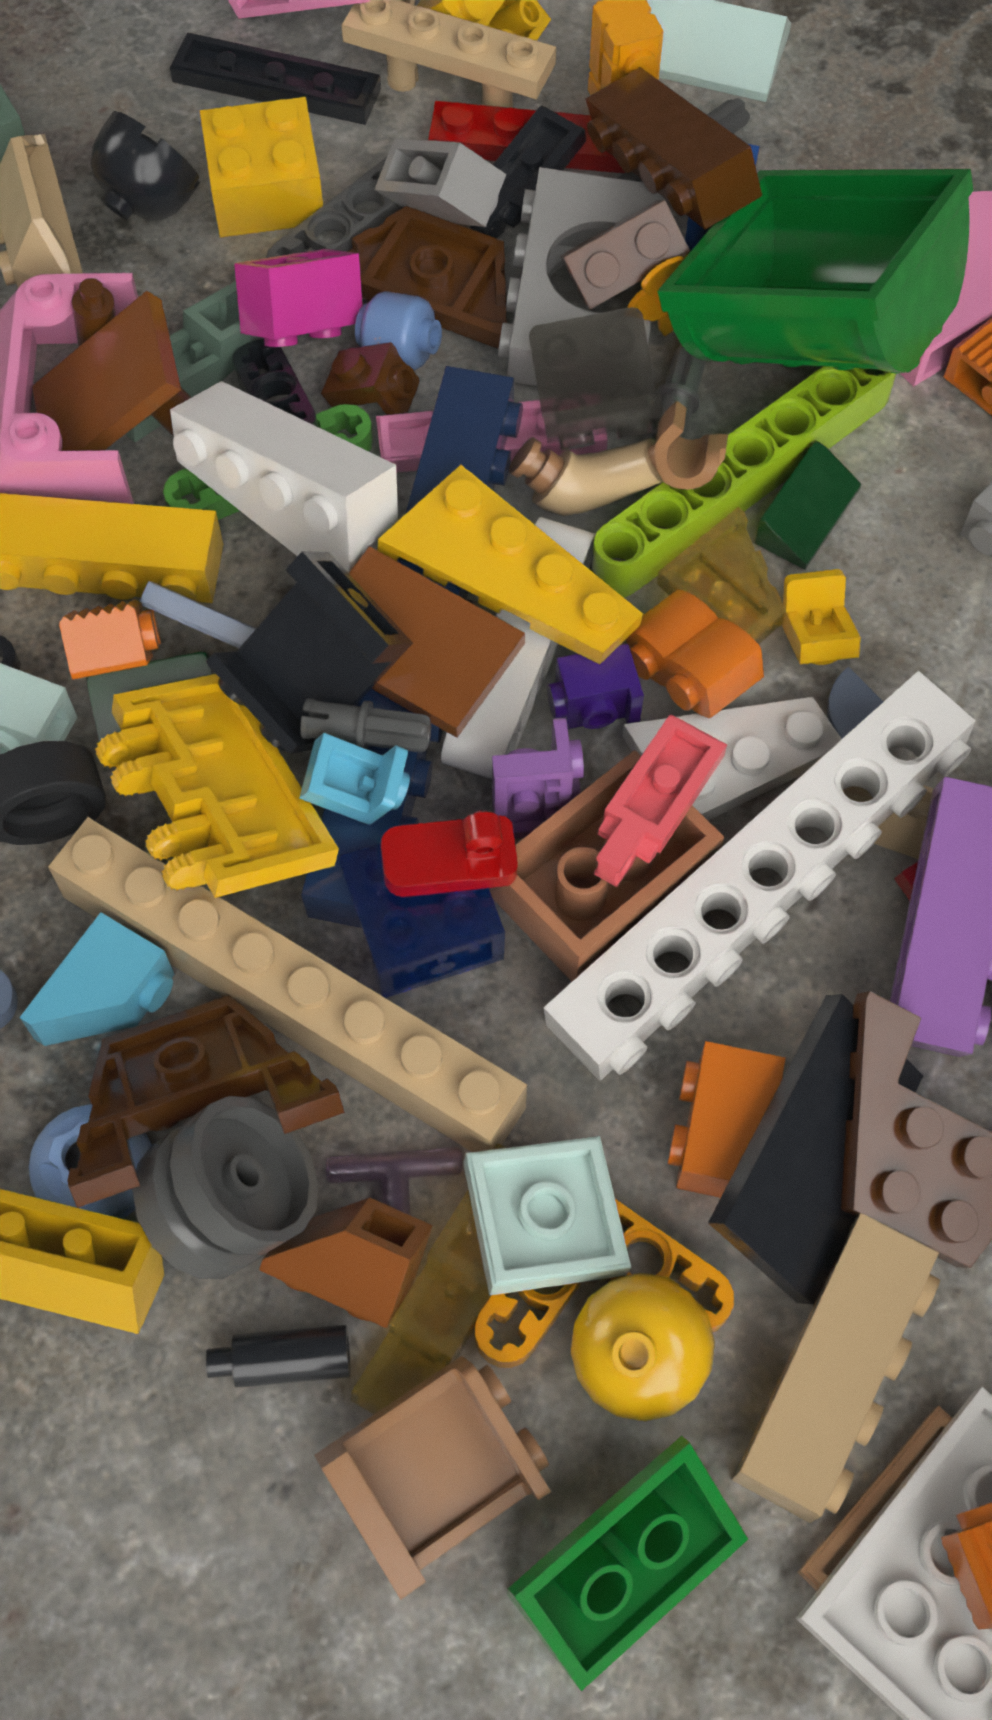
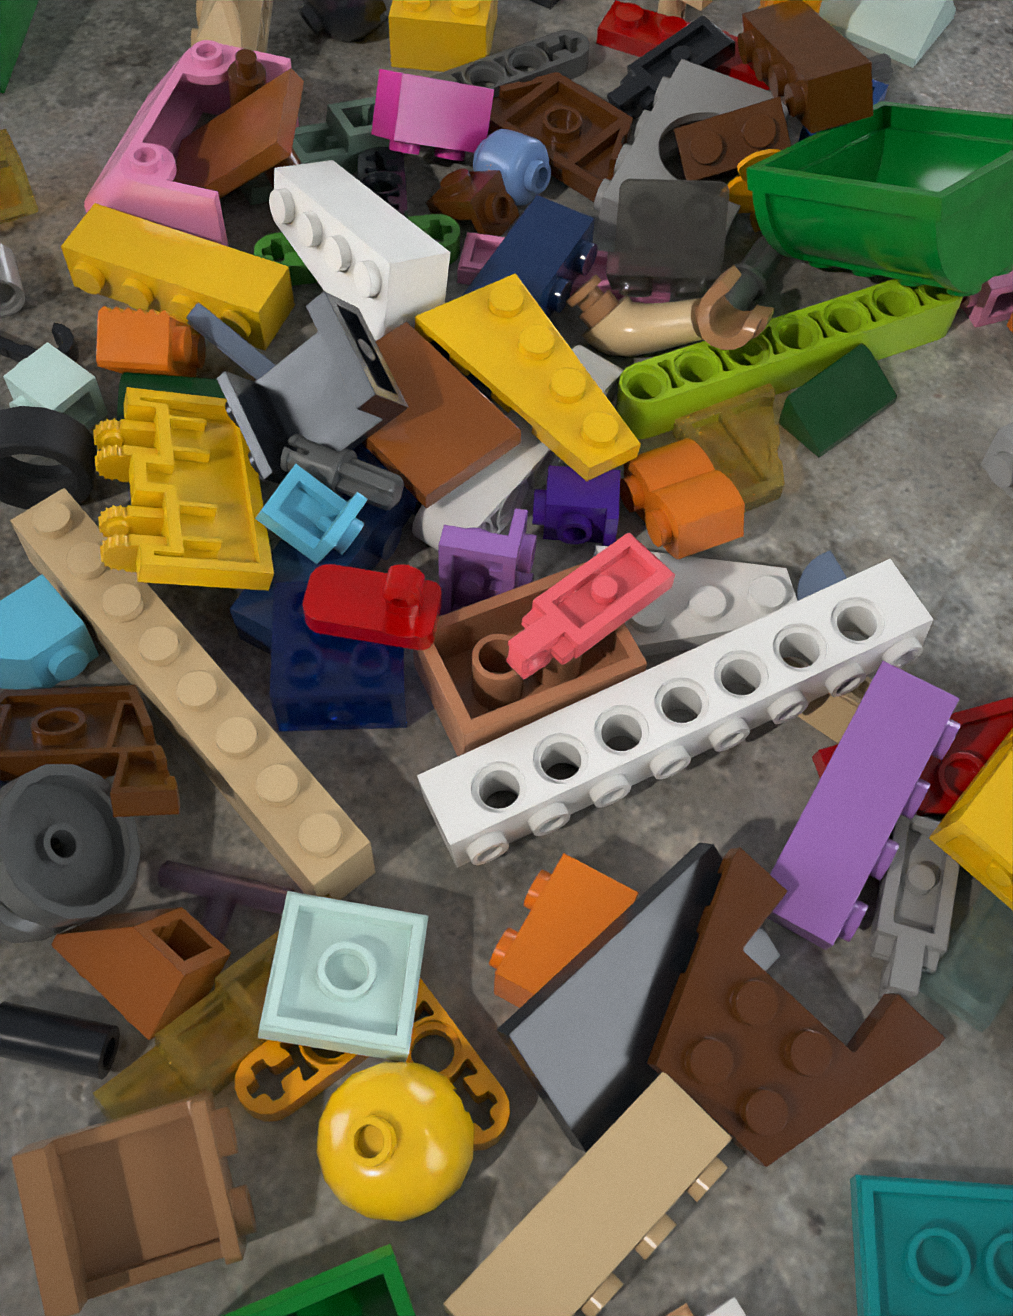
camera: 15 degrees right, 5 degrees down
(441, 180) = (592, 51): light grey brick -> none
(817, 618) = (814, 497): yellow bracket -> none

